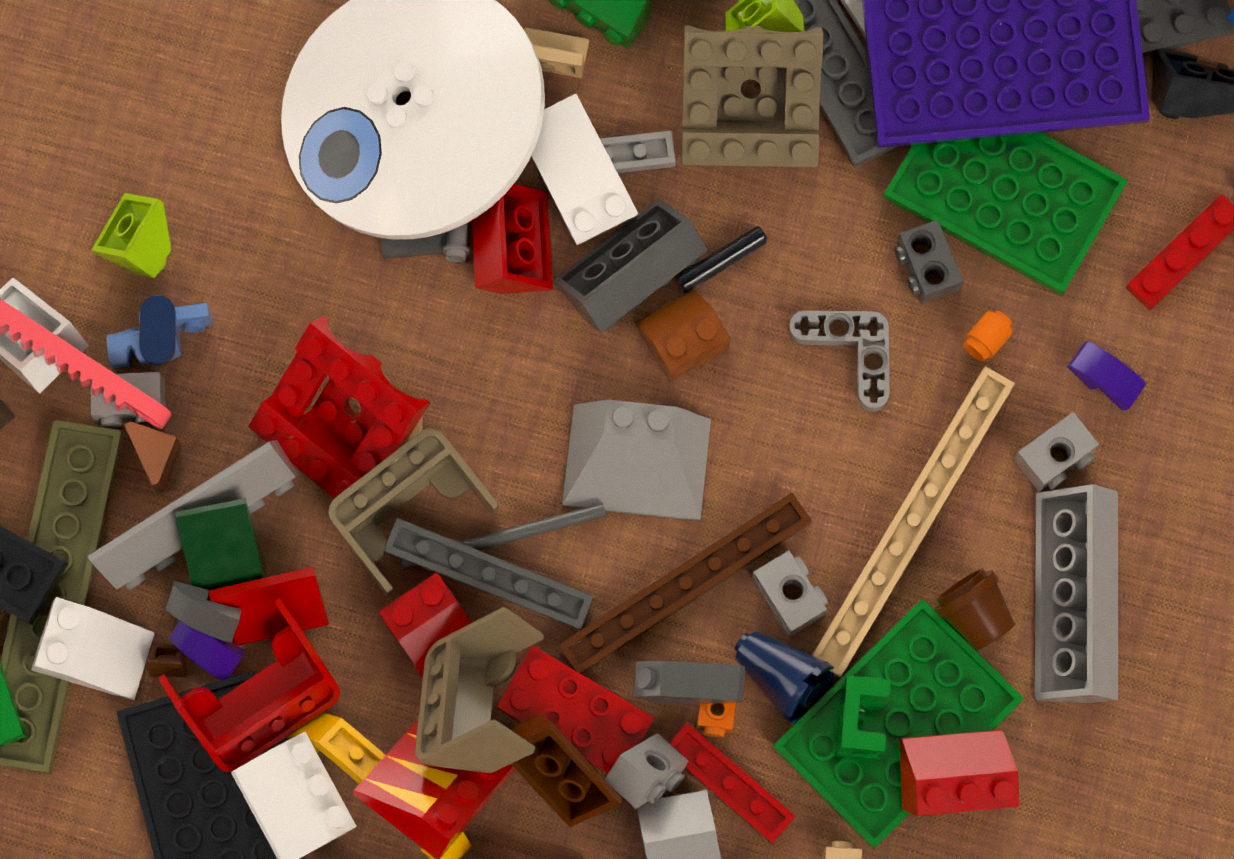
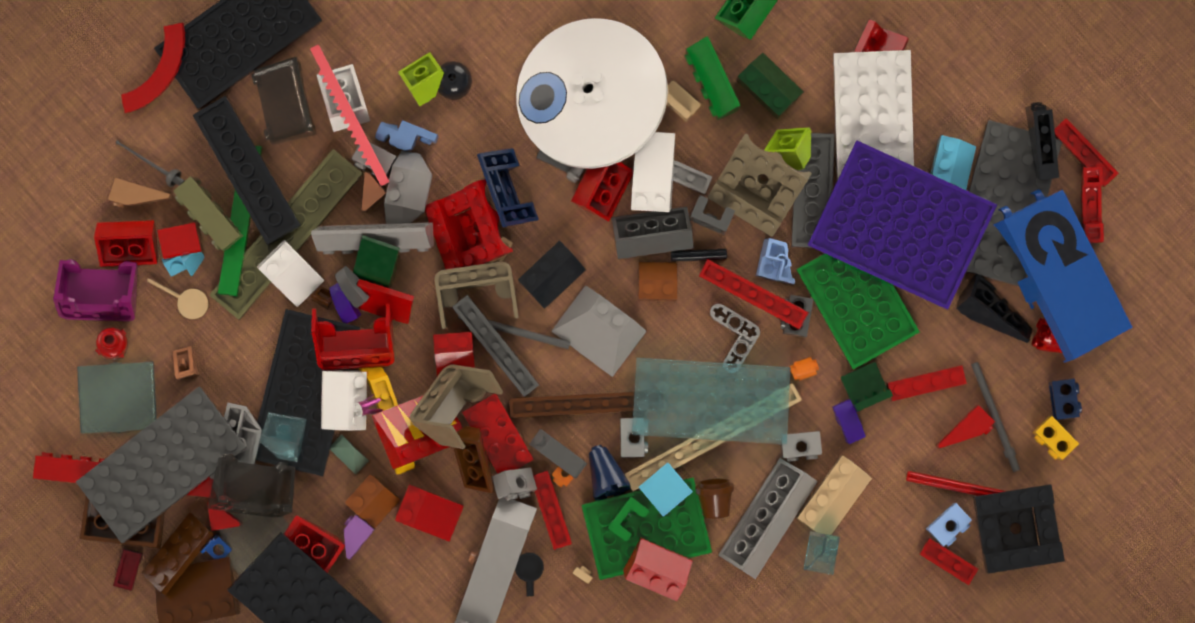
camera: 30 degrees right, 10 degrees up
(157, 330) = (406, 135): dark blue tile -> none
(189, 212) = (460, 85): none -> black cylinder
(207, 413) = (407, 189): none -> light grey wedge
(330, 790) = (361, 408): none -> flat silver piece
(331, 293) = (496, 172): none -> dark blue slope
(511, 416) = (551, 274): none -> black slope
(710, 195) = (709, 220): none -> dark grey panel
(843, 203) = (775, 262): none -> light blue slope
(843, 264) = (753, 294): none -> red plate
(877, 463) = (711, 401): none -> clear light blue plate
(891, 641) = (665, 489): none -> medium azure tile
(1099, 308) = (865, 387): none -> dark green bracket
(1156, 503) = (834, 496): none -> tan slope
(1196, 594) = (821, 553): none -> clear light blue slope

